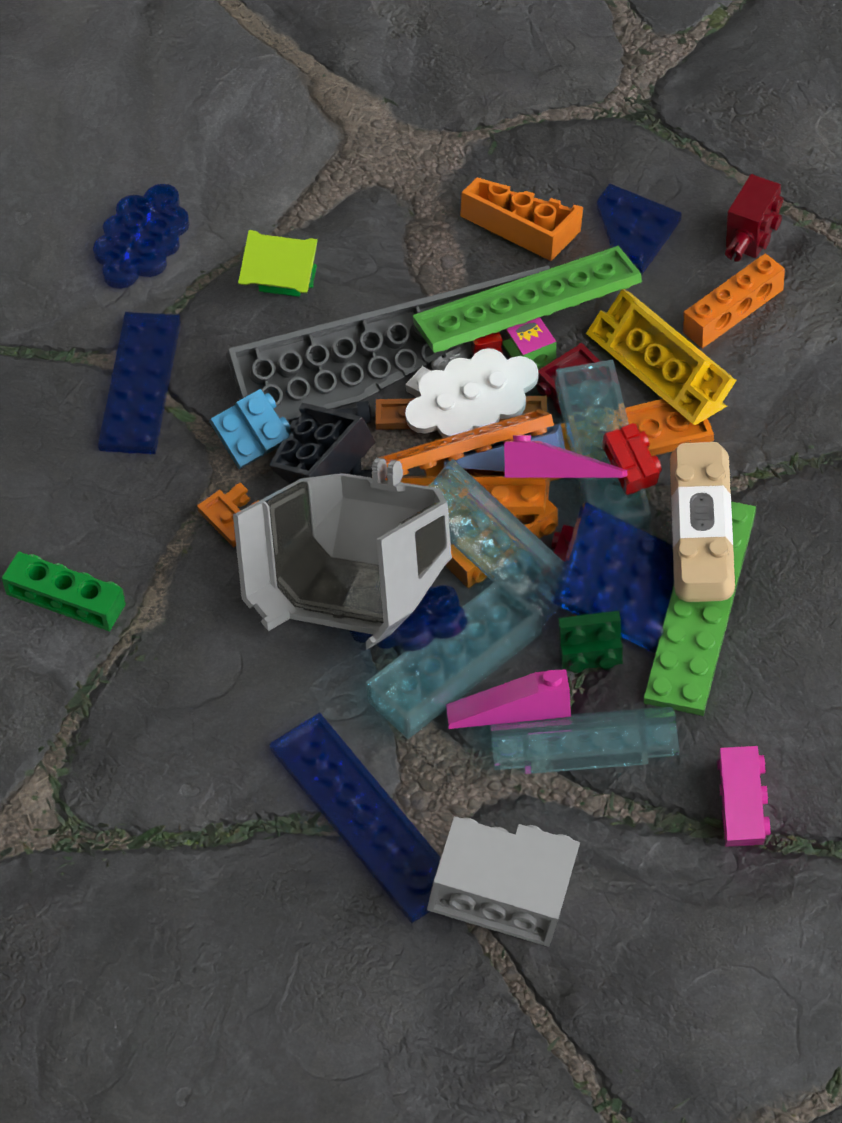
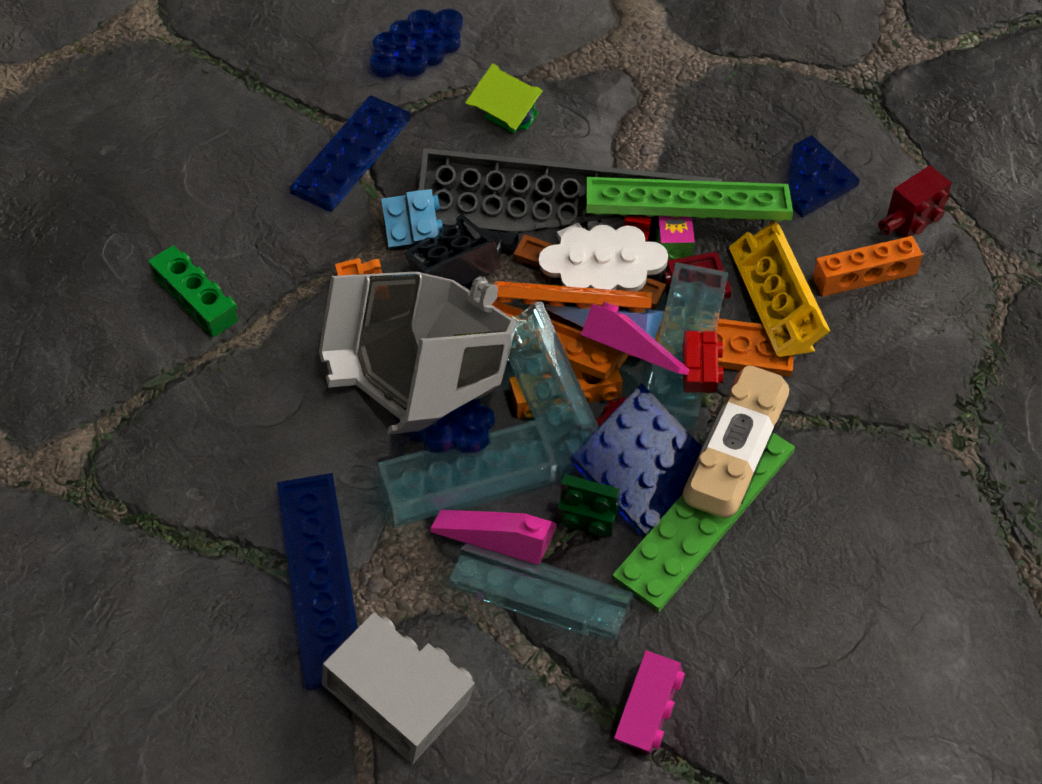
camera: 20 degrees right, 0 degrees up
(521, 218) = (723, 135): orange wedge -> none

